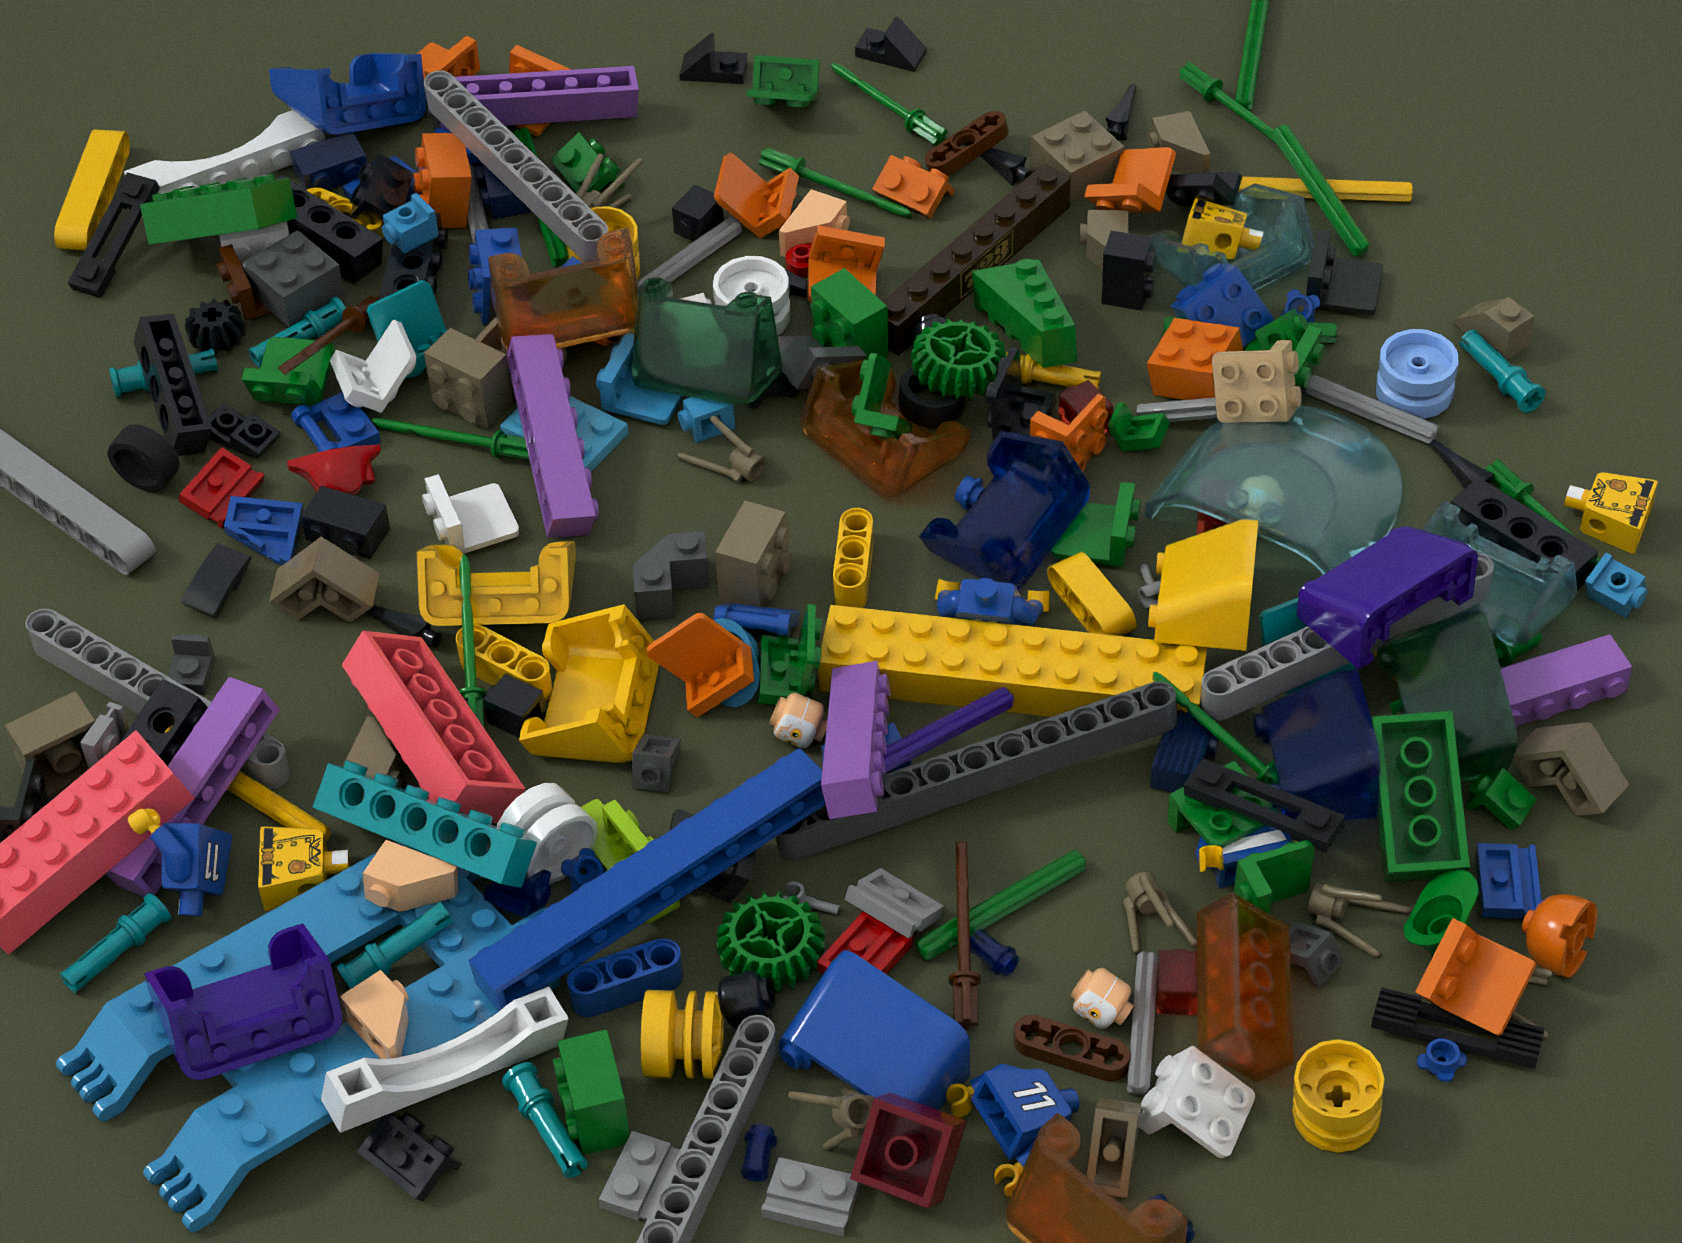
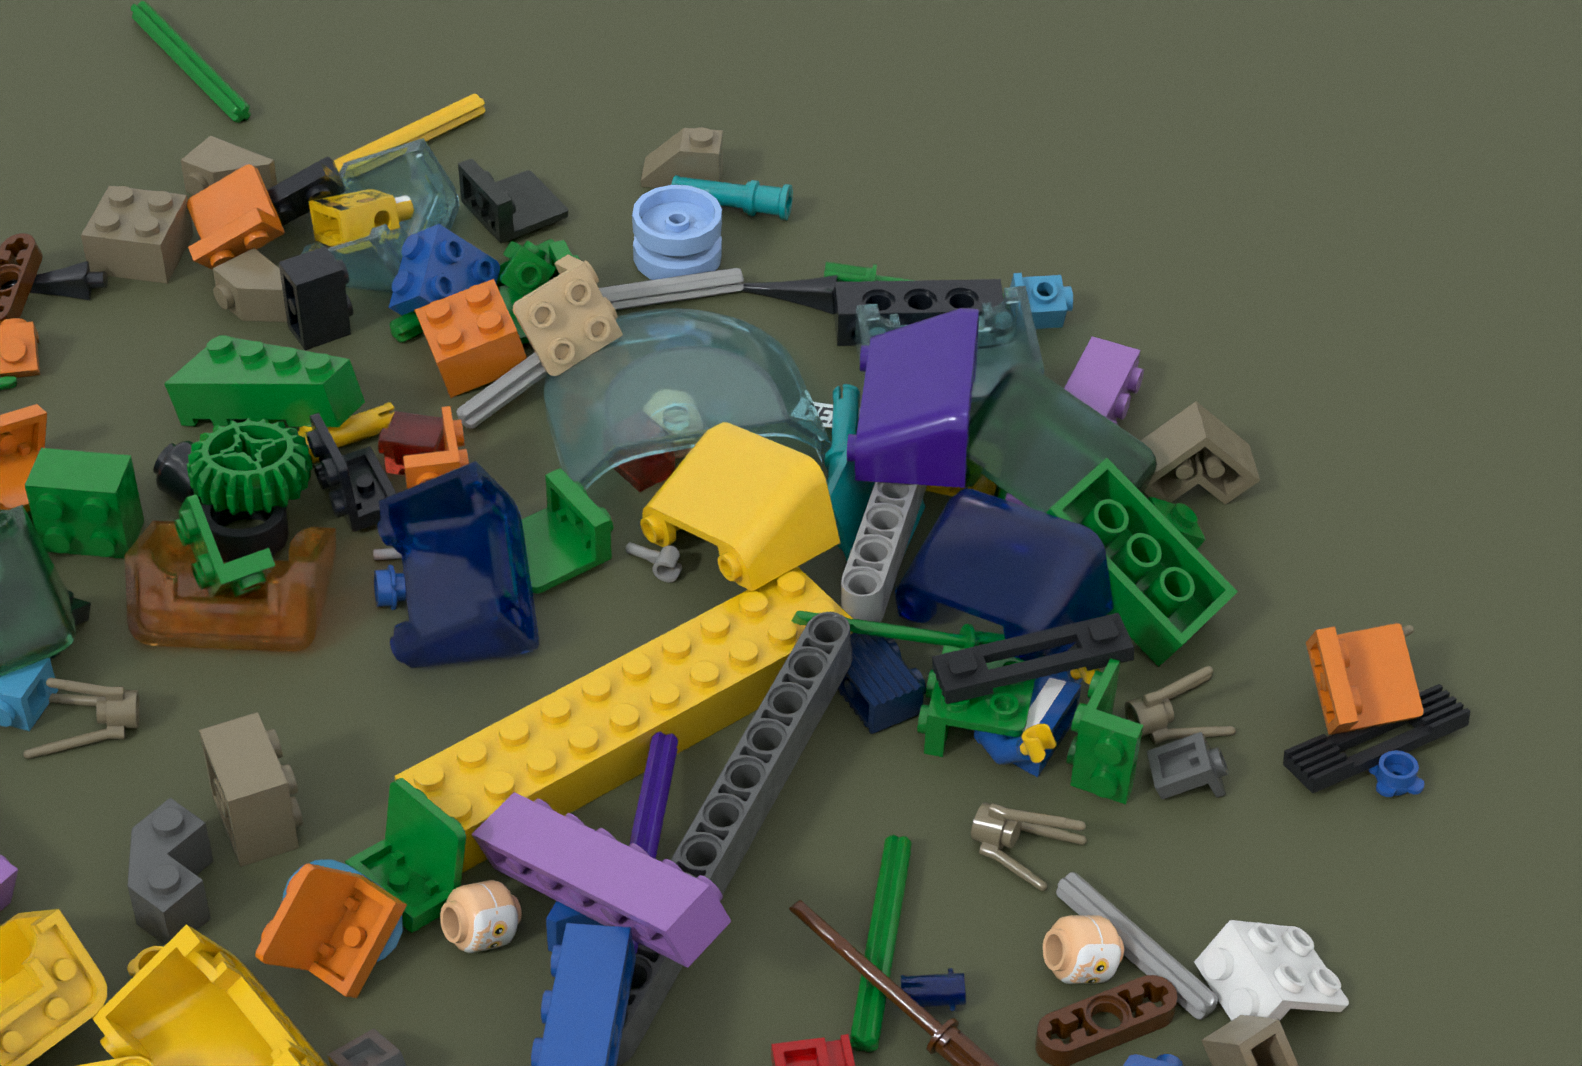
camera: 50 degrees left, 5 degrees down
(758, 617) = (322, 844): blue plate -> none
(805, 354) = (103, 573): dark grey bracket -> none
(853, 558) = (349, 725): yellow beam -> none
(894, 902) = (792, 1017): light grey plate -> none
(984, 245) = (140, 366): dark brown brick -> none
(990, 602) = (537, 671): blue torso -> none
(1091, 596) = (621, 601): yellow beam -> none
(1119, 117) = (131, 175): black piece -> none
(1137, 431) = (489, 430): green bracket -> none
(1177, 982) = (1126, 877): clear red brick -> none
(1211, 89) = (194, 115): green piece -> none
(1244, 988) = (1199, 836): clear orange brick -> none
(1309, 303) = (493, 238): blue plate -> none
(1321, 190) = (398, 134): green axle -> none
(1342, 1076) = (1385, 866): yellow wheel -> none
(1442, 899) = (1255, 646): green piece -> none
(1507, 880) = (1265, 592): blue plate -> none
(1558, 932) = (1356, 592): orange cylinder -> none
(1614, 508) = (960, 245): yellow torso -> none

